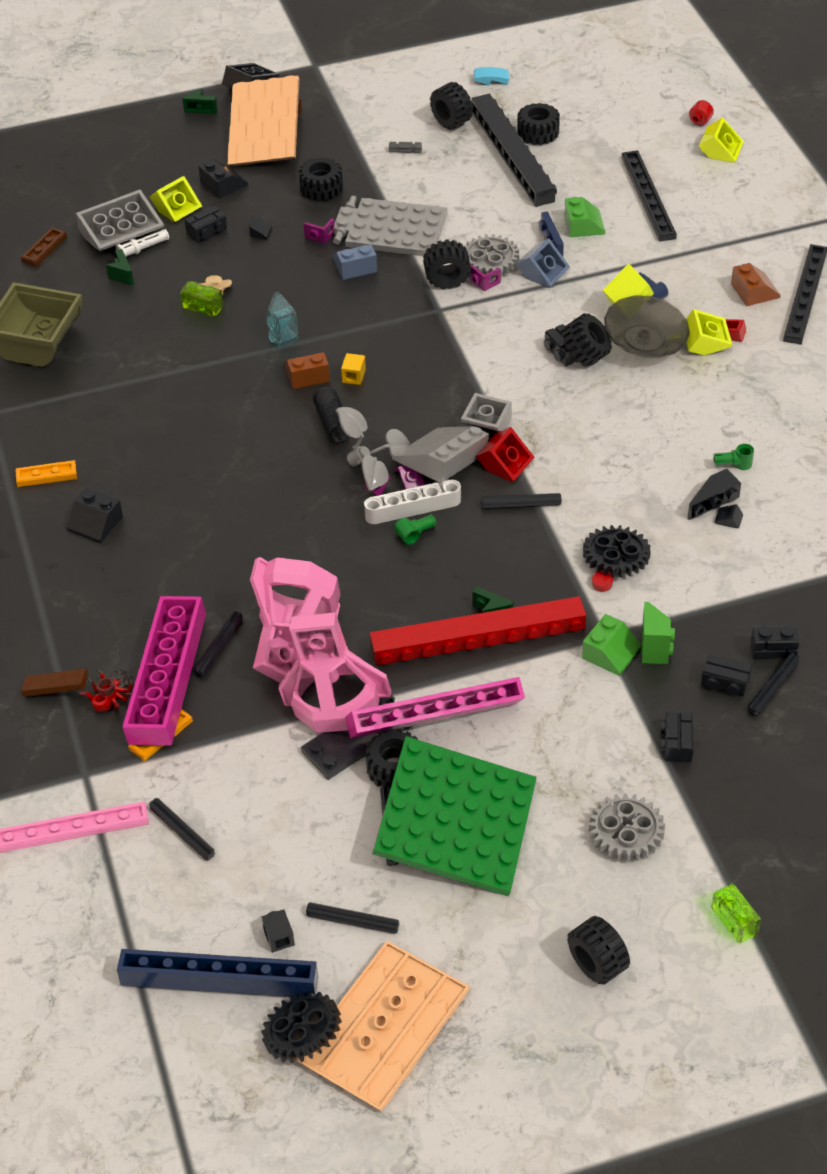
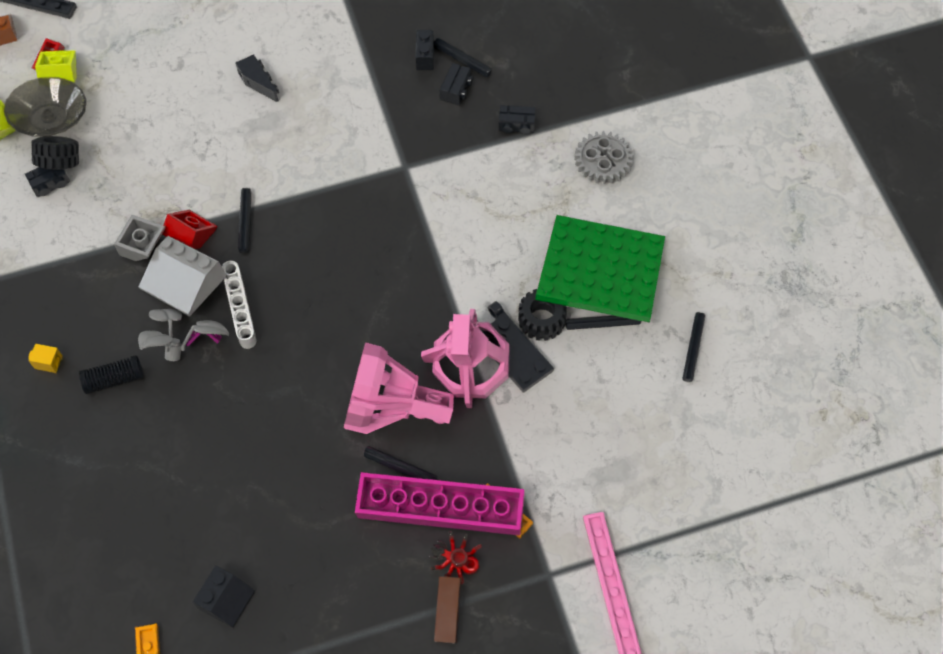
camera: 90 degrees left, 15 degrees up
(182, 829) = (610, 483): black axle -> none
(217, 973) = (761, 441): dark blue brick -> none
(278, 930) = (712, 399): black brick -> none
(301, 1027) = (815, 361): black gear -> none
(307, 370) = (34, 402): dark orange slope -> none
(387, 1024) = (788, 323): light nougat piece -> none
(410, 477) = (207, 307): magenta bracket -> none
(410, 530) = (272, 306): green pin -> none
(434, 707) = (497, 279): dark pink brick -> none
(477, 630) = (401, 256): red brick -> none
(489, 601) = (371, 241): dark green slope -> none
(598, 950) = (725, 173): black tyre -> none
(601, 582) = (346, 163): red tile -> none
(610, 645) = (420, 160): bright green slope -> none
(616, 551) = (316, 149): black gear -> none
(656, 636) = (417, 124): bright green slope -> none
(729, 516) = (280, 72): black slope -> none
(736, 913) = (679, 94): clear neon green brick -> none
(740, 458) = (216, 58): green pin -> none

